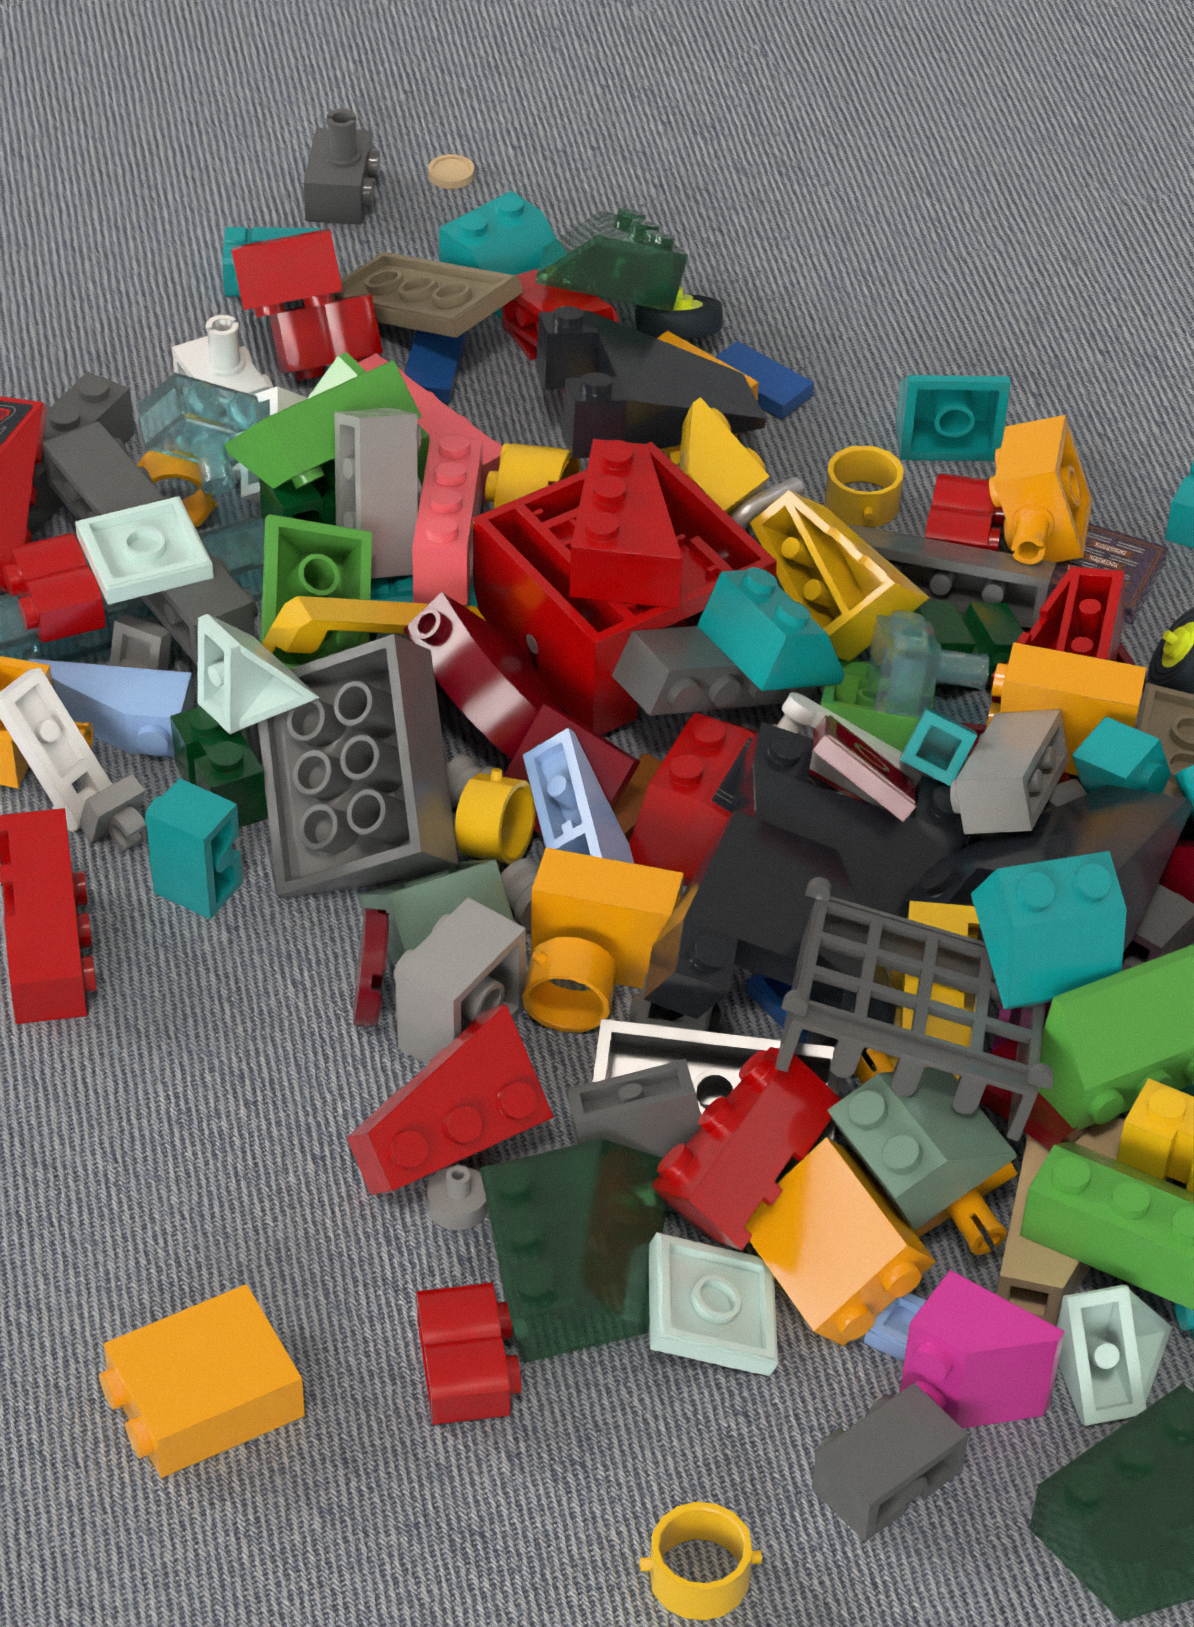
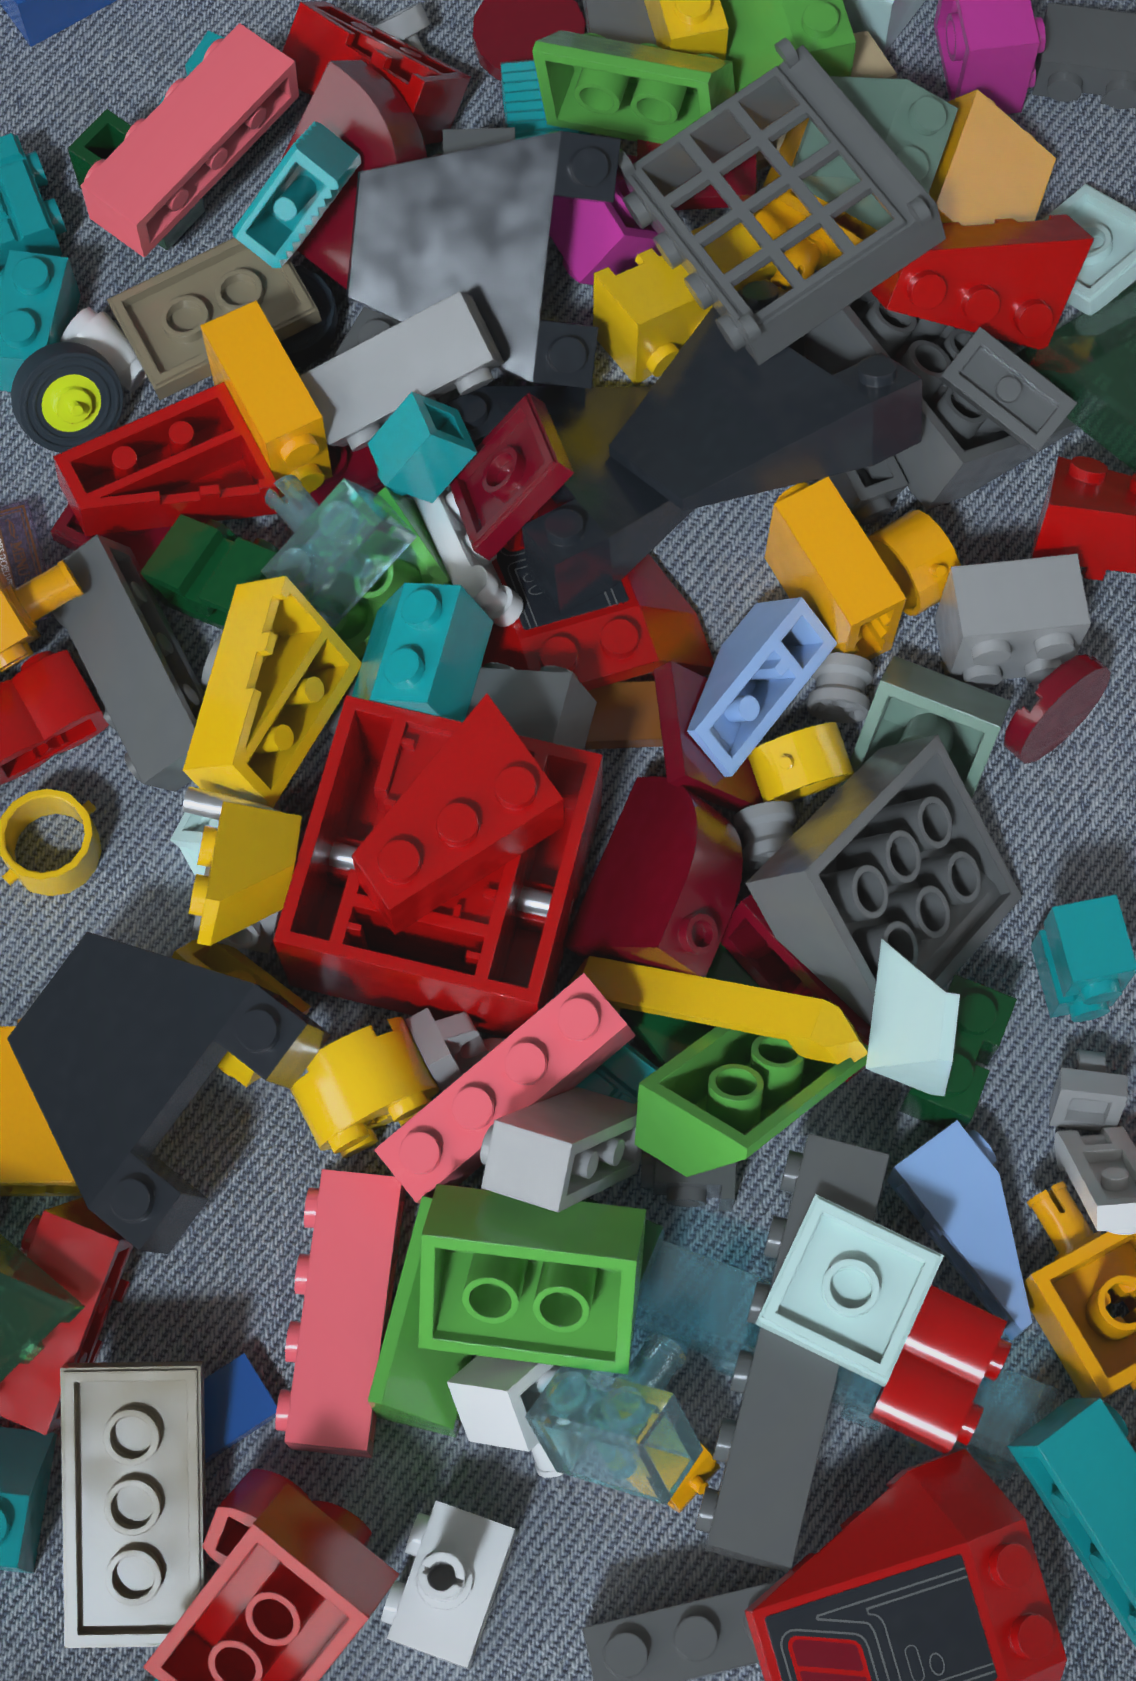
camera: 130 degrees left, 25 degrees up
(1051, 926) = (640, 120): teal slope -> none
(1121, 758) = (316, 296): teal brick -> none

